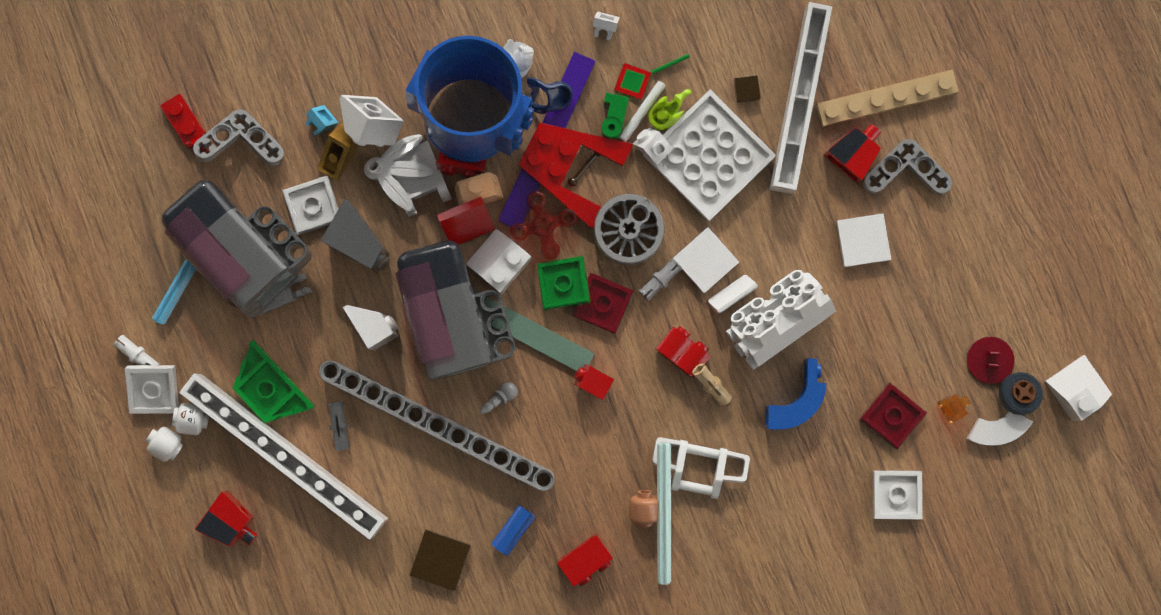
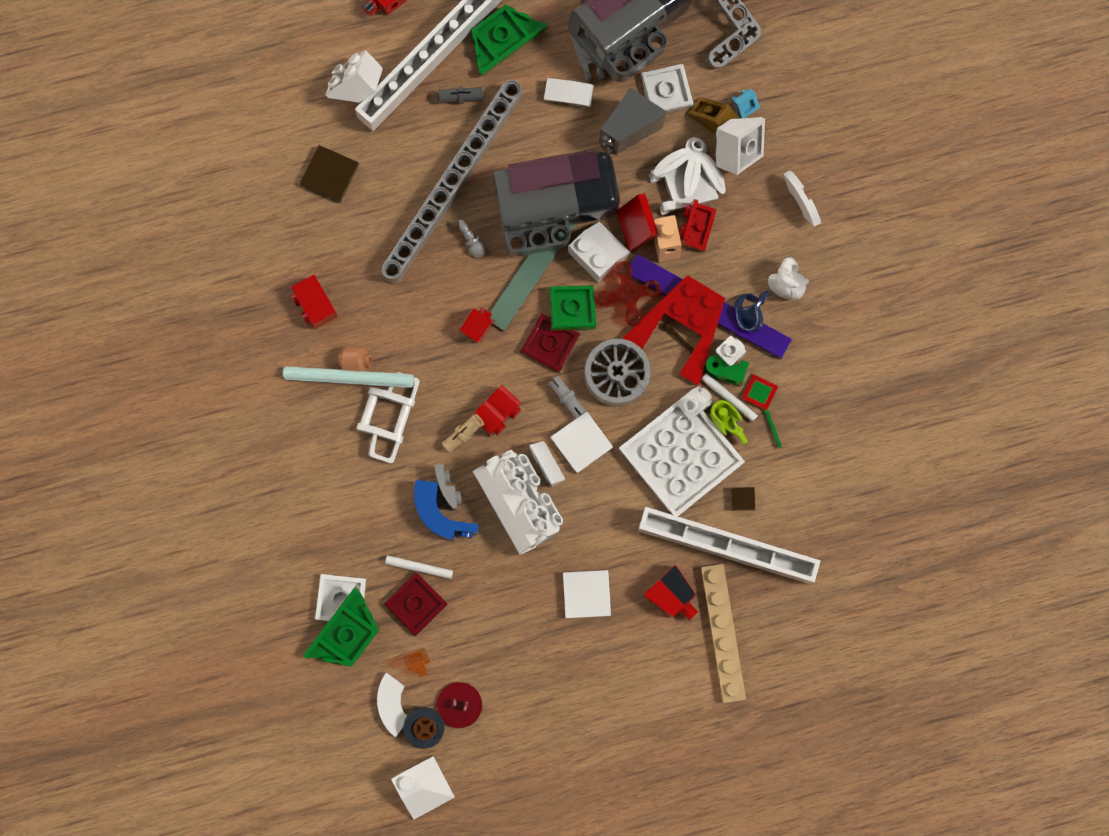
camera: 90 degrees right, 5 degrees down
(326, 310) = (568, 92): none -> white slope
(334, 543) = (355, 78): none -> white slope
(372, 326) = (547, 129): white slope -> none
(412, 57) = (807, 206): none -> white tile
(471, 60) = (781, 208): blue cylinder -> none
(513, 530) = (348, 240): blue axle -> none
(595, 112) = (731, 350): none -> white bracket
(605, 22) = (817, 370): white tile -> none
(779, 390) = (450, 494): none -> light grey slope
(854, 416) = (419, 567): none -> white bar
(911, 163) = (658, 650): light grey beam -> none
(934, 485) = (345, 633): none -> green wing

